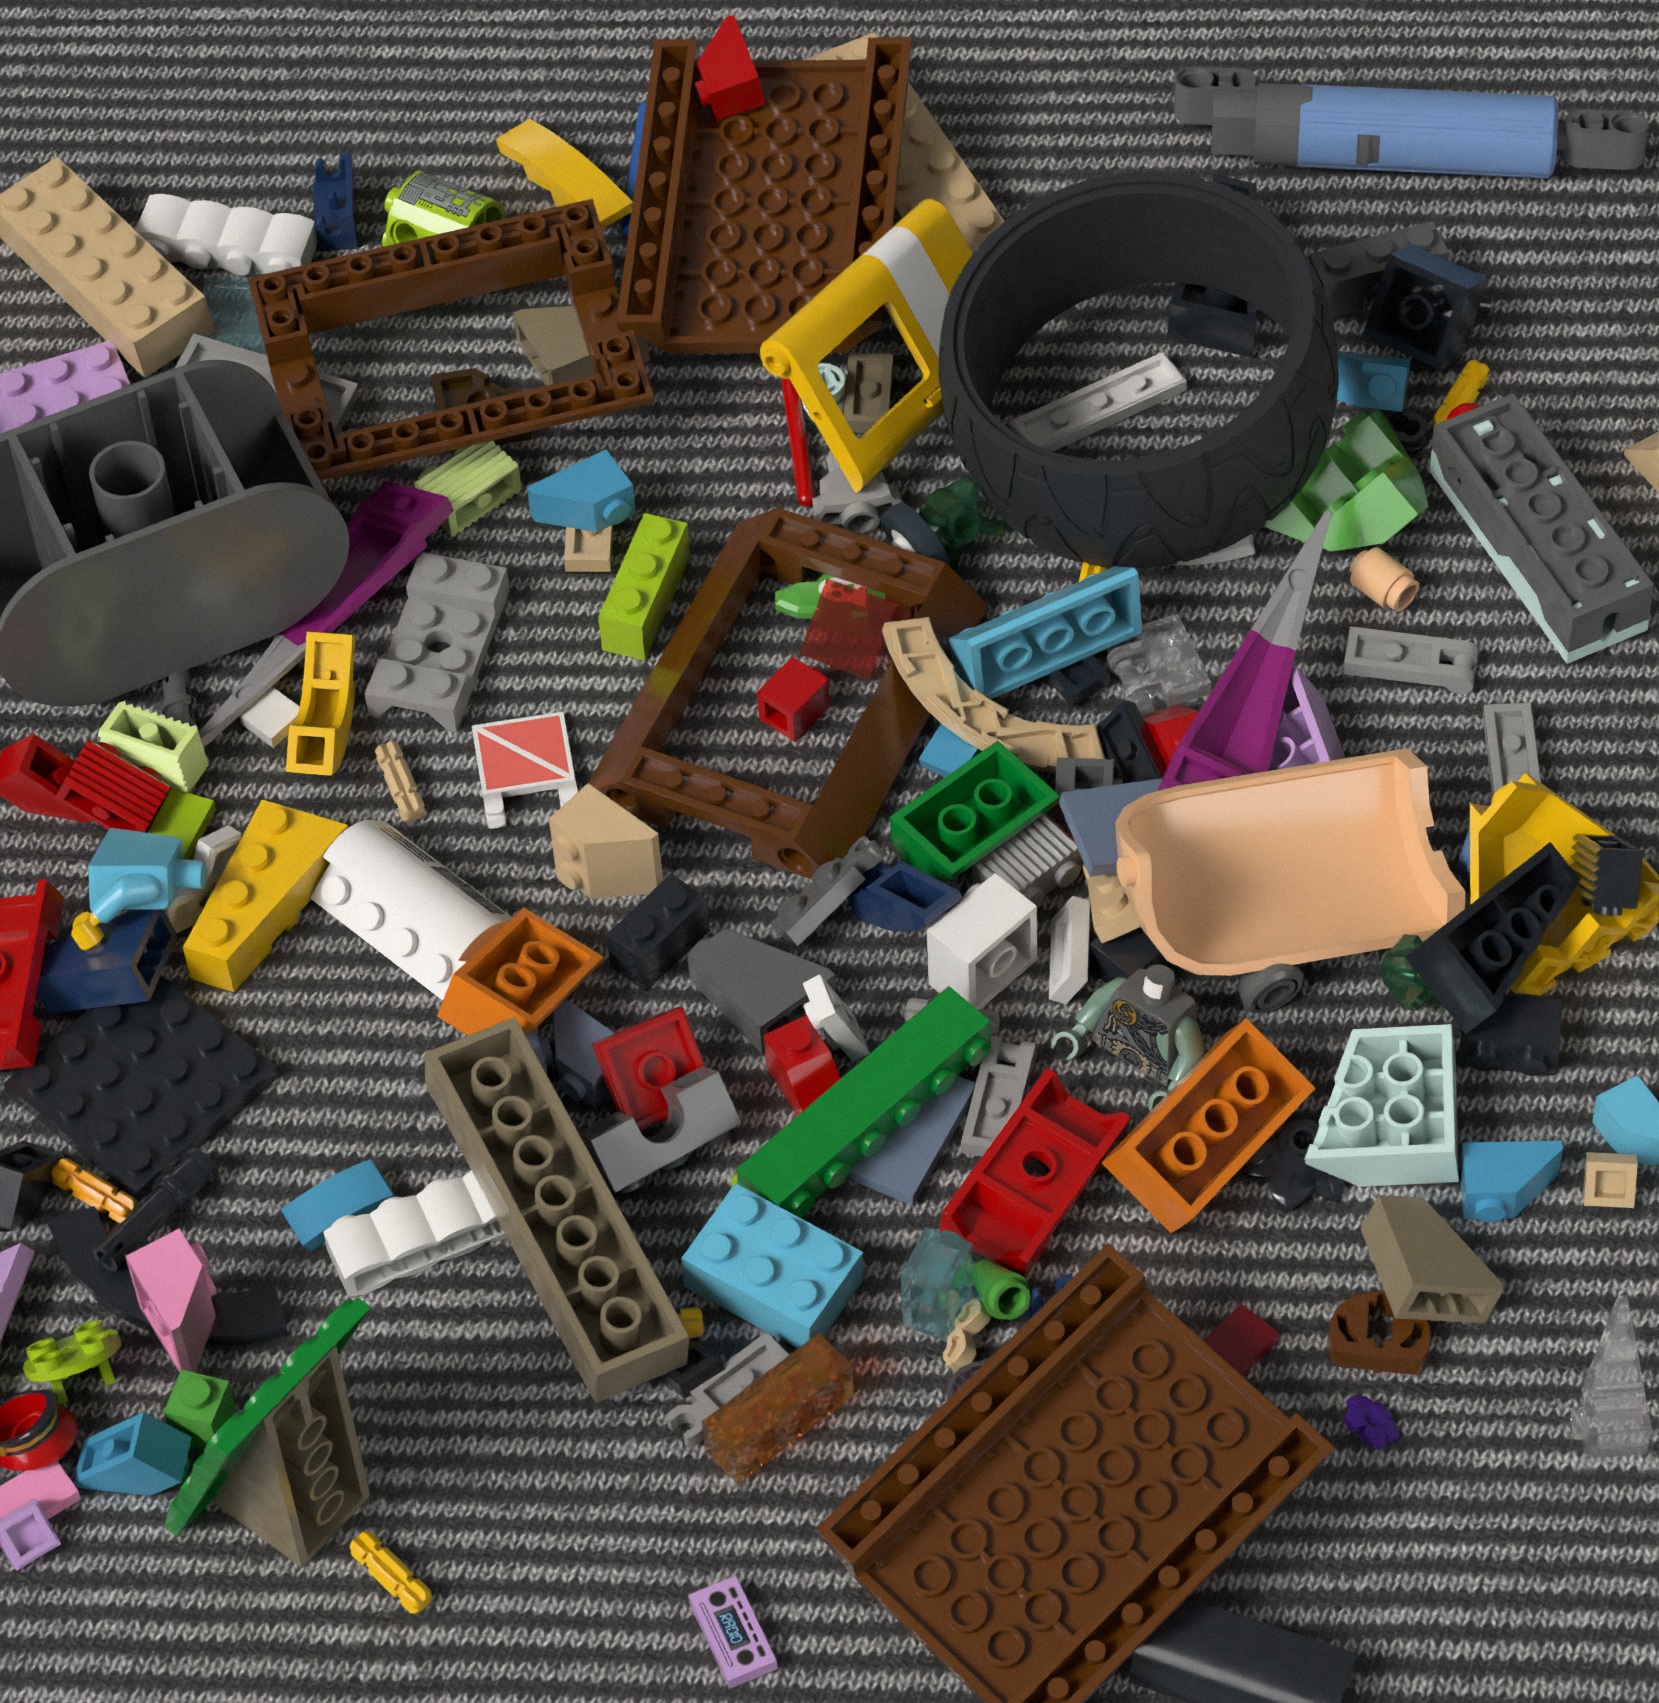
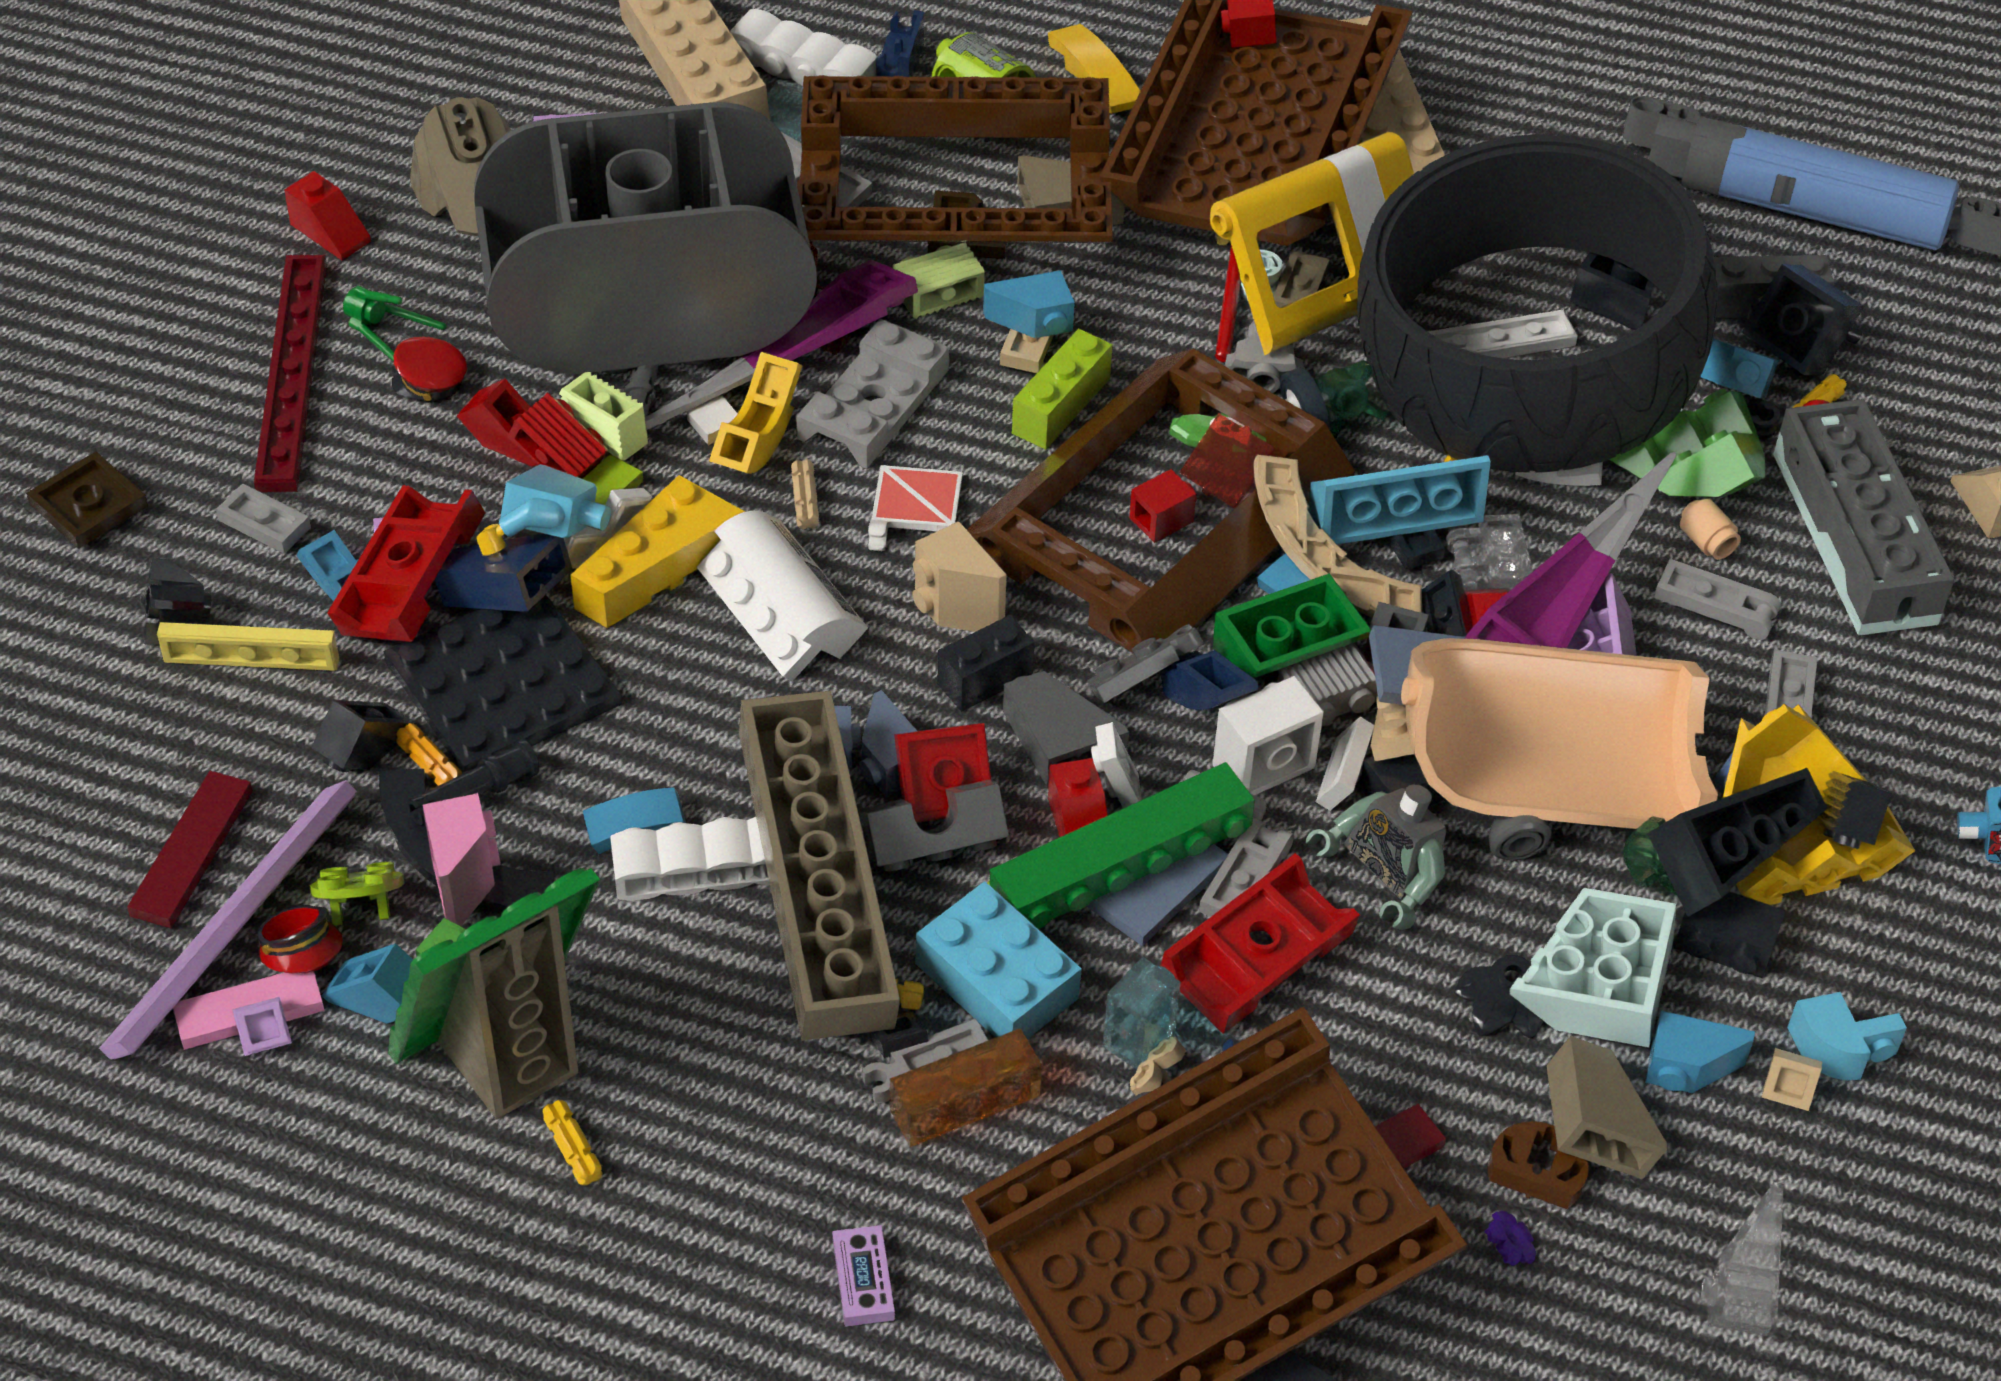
camera: 10 degrees right, 5 degrees down
(517, 974) = (850, 660): orange slope -> none
(1001, 1290) = (1198, 1034): bright green cone -> none
(1208, 1126) = (1428, 938): orange brick -> none

